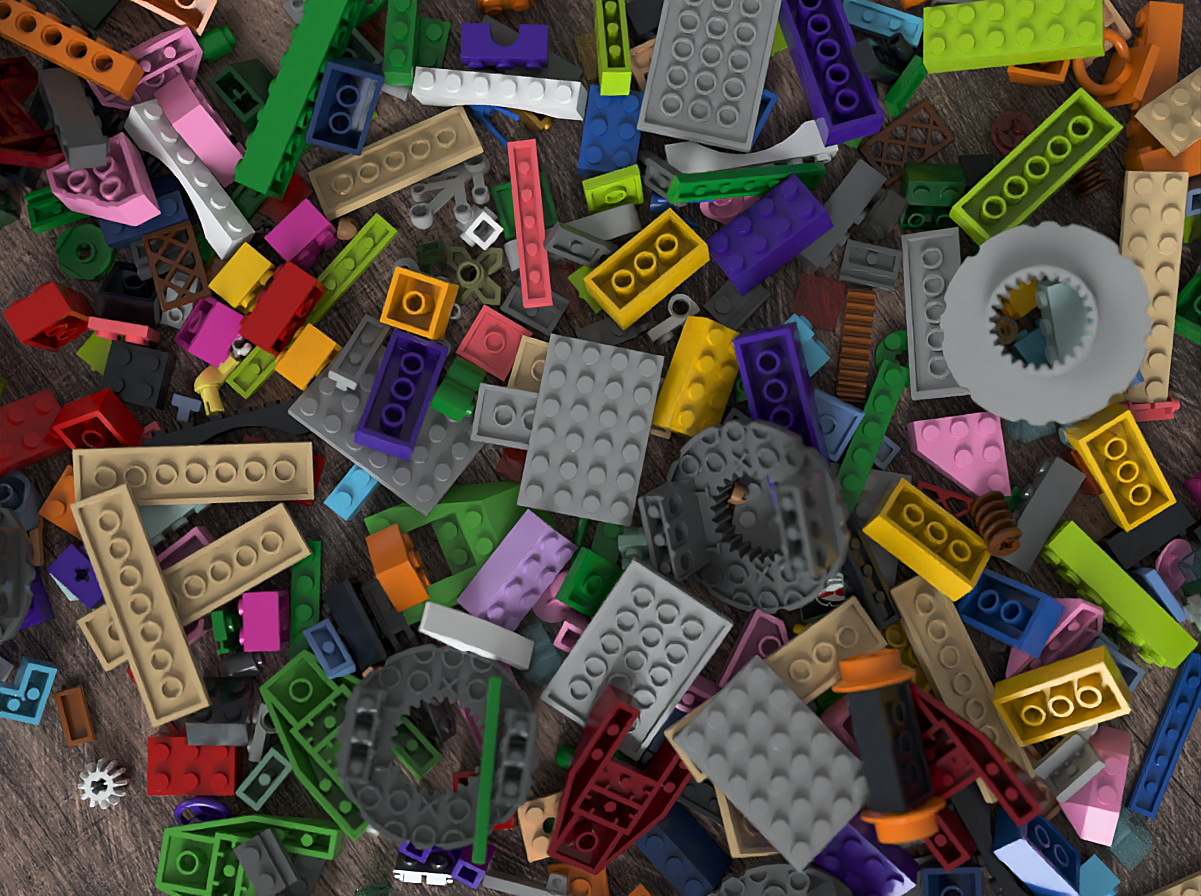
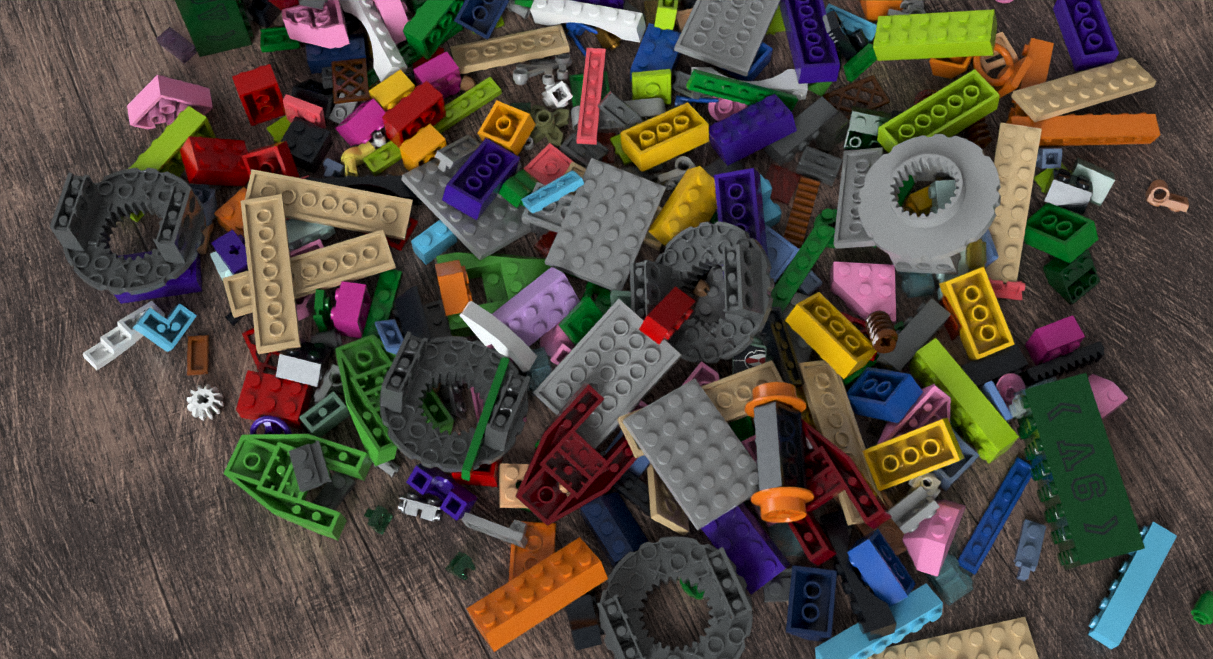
camera: 15 degrees right, 20 degrees down
(70, 258) = (290, 78): green plate -> none
(507, 399) = (552, 192): none -> medium azure plate
(705, 572) = (668, 316): none -> red brick

